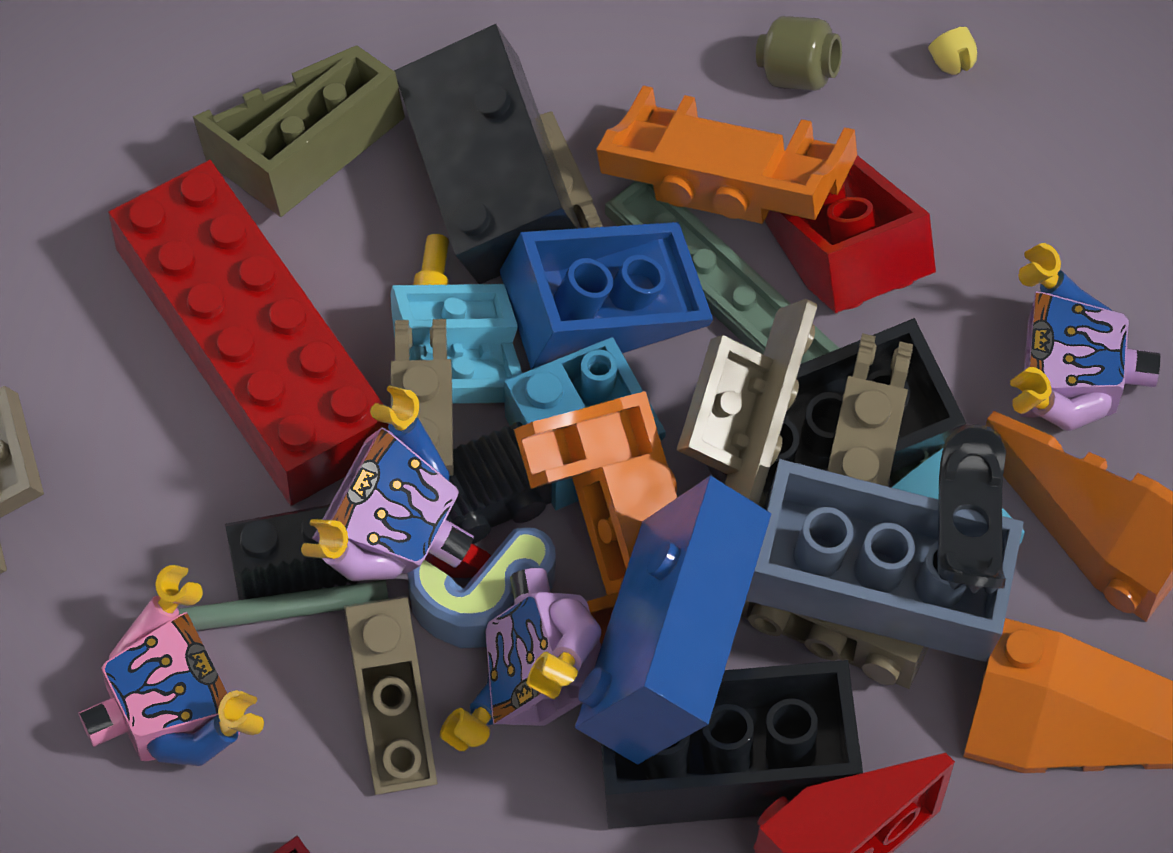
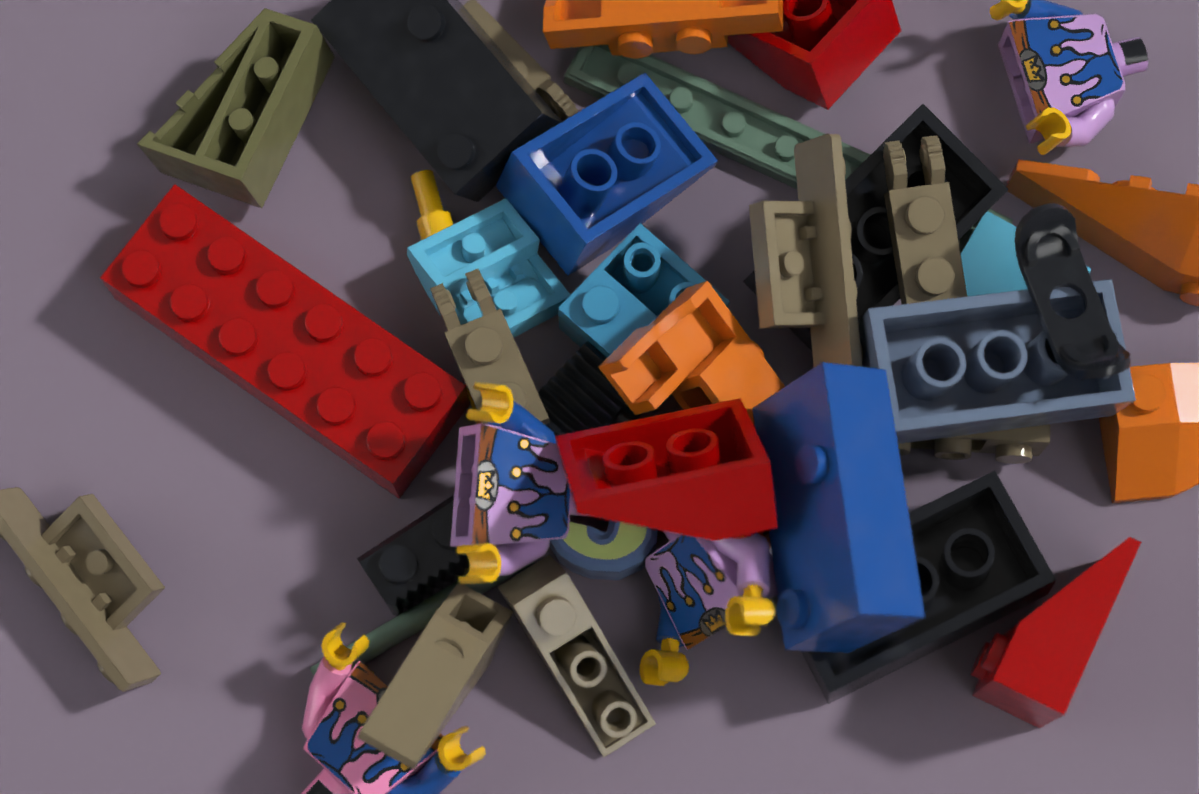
camera: 20 degrees left, 15 degrees up
(253, 644) = (436, 675): none -> dark tan slope
(545, 535) = (675, 472): none -> red slope

